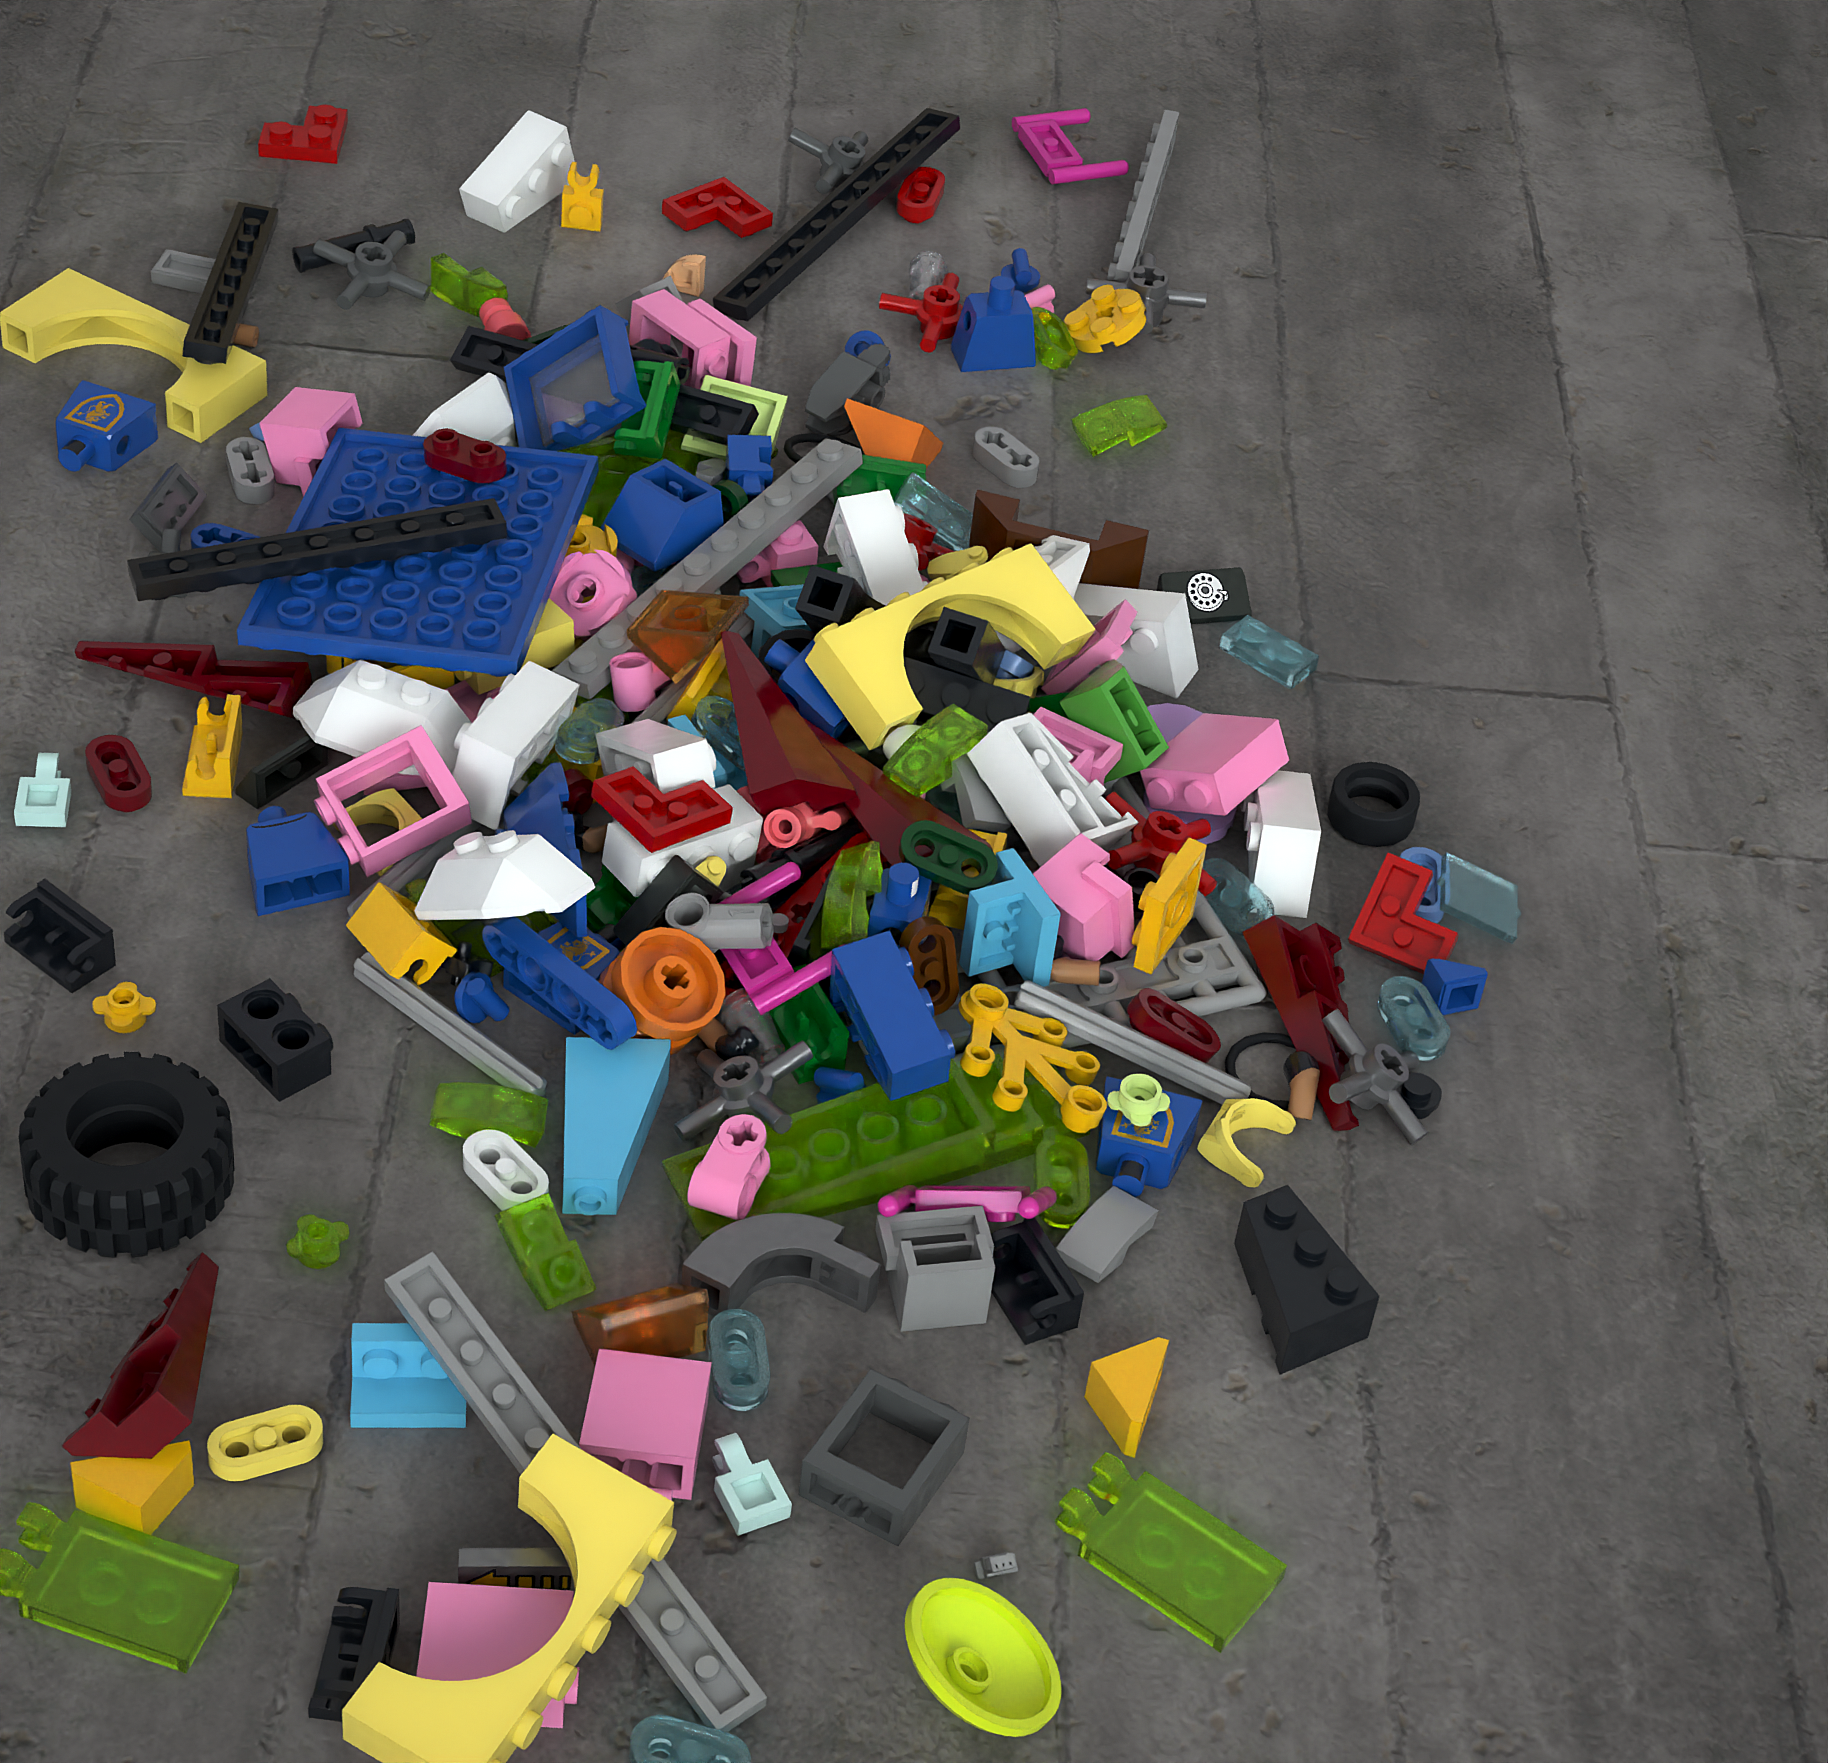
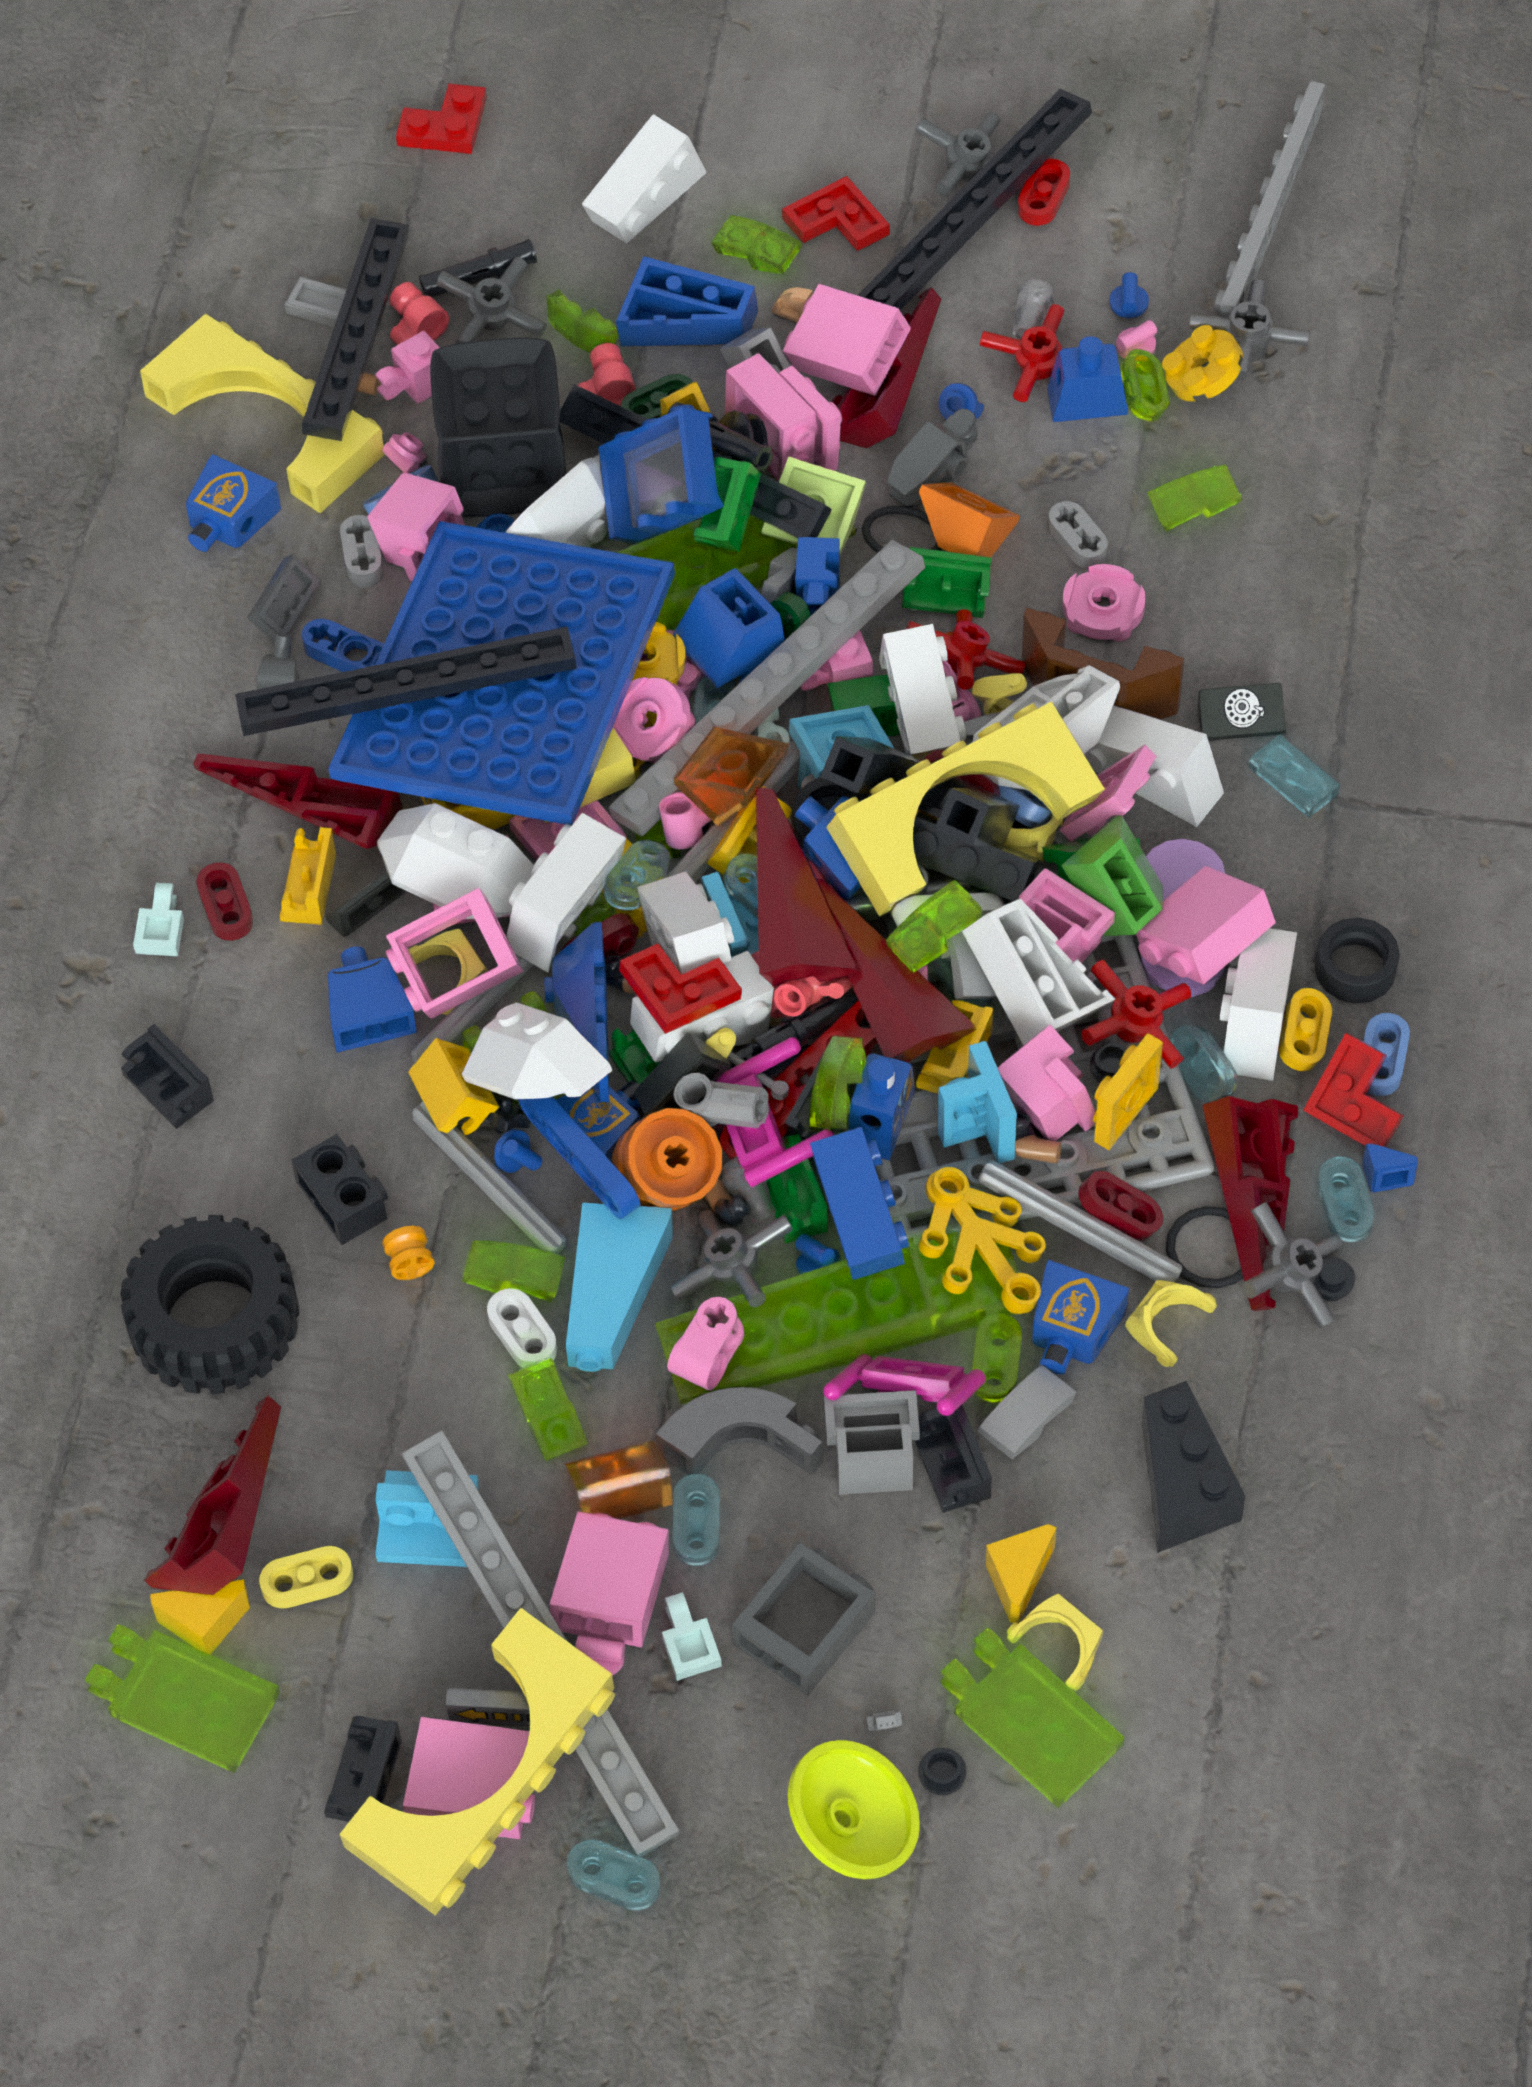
camera: 15 degrees right, 15 degrees up
(124, 1008) = (217, 1159): yellow plate -> none
(285, 383) = (405, 452): none -> bright pink plate
(295, 281) = (418, 314): none -> coral piece
(298, 319) = (409, 369): none -> bright pink brick
(317, 1241) = (362, 1400): clear neon green plate -> none
(362, 1099) = (408, 1252): none -> light orange wheel
(395, 339) = (497, 422): none -> black piece
(464, 456) = (544, 564): dark red plate -> none
(574, 270) = (684, 307): none -> blue wedge
(582, 201) = (700, 213): yellow plate -> none
(645, 227) = (761, 244): none -> clear neon green slope
(752, 286) = (846, 339): none -> bright pink brick
(789, 334) = (874, 418): none -> dark red wedge
(933, 506) = (992, 612): clear light blue plate -> none
(933, 960) = (901, 1150): reddish brown plate -> none
(949, 854) = (926, 1048): dark green plate -> none
(1054, 151) = (1190, 129): dark pink plate -> none
(1065, 508) = (1101, 622): none -> bright pink plate
(1077, 1615) = (942, 1771): none -> black plate
(1139, 1099) = (1071, 1278): yellowish green plate -> none
(1193, 1438) = (1059, 1610): none -> light yellow helmet
(1302, 1077) = (1228, 1258): medium nougat arm -> none
(1336, 867) = (1304, 1033): none -> yellow plate
(1478, 897) = (1435, 1069): clear light blue piece -> none

